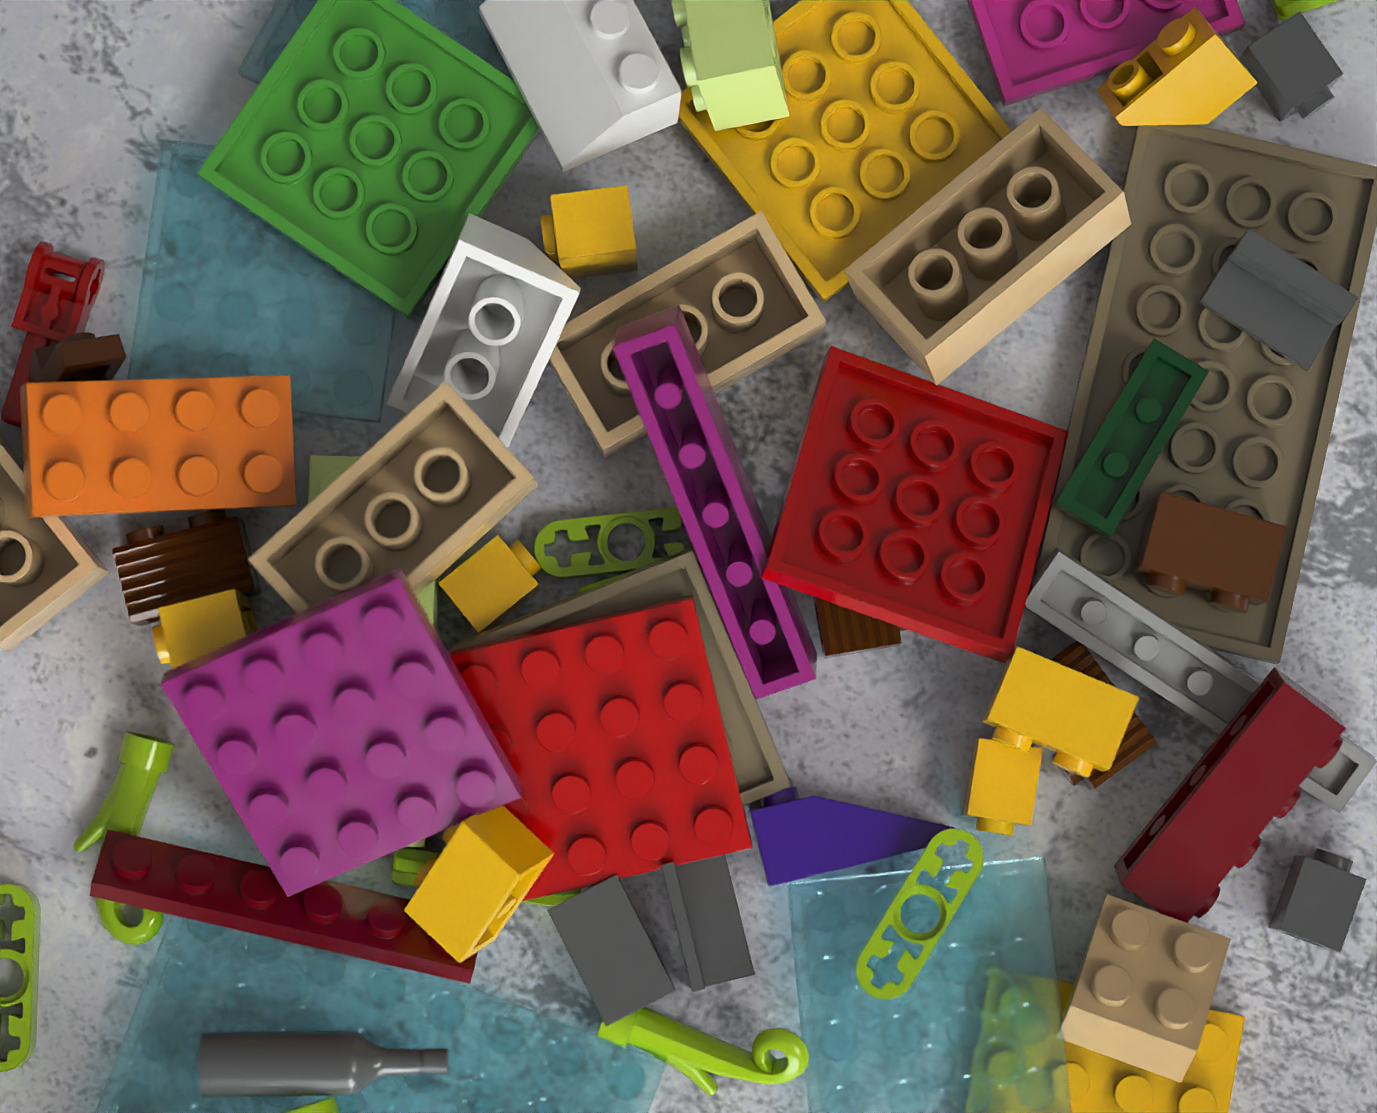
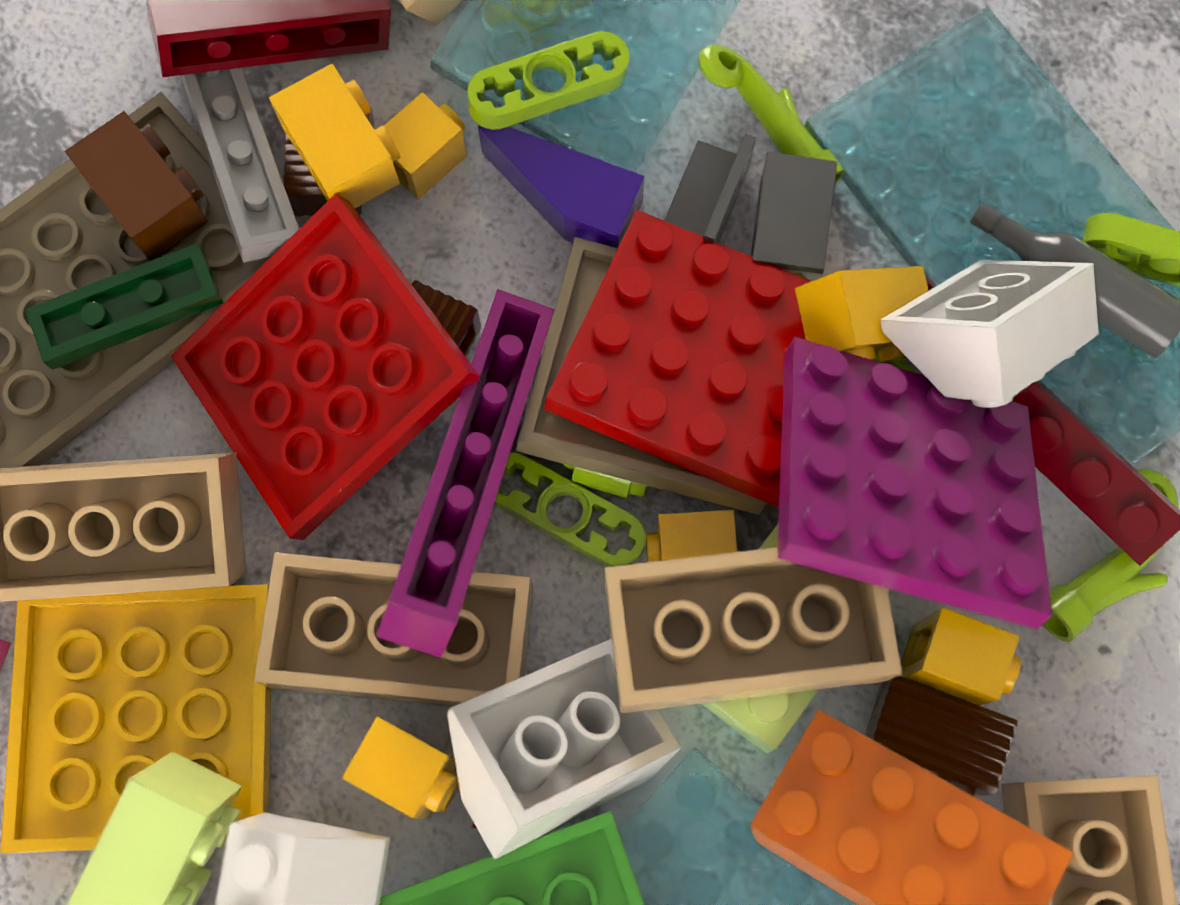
camera: 145 degrees left, 10 degrees down
(360, 940) = (997, 326): none -> white slope

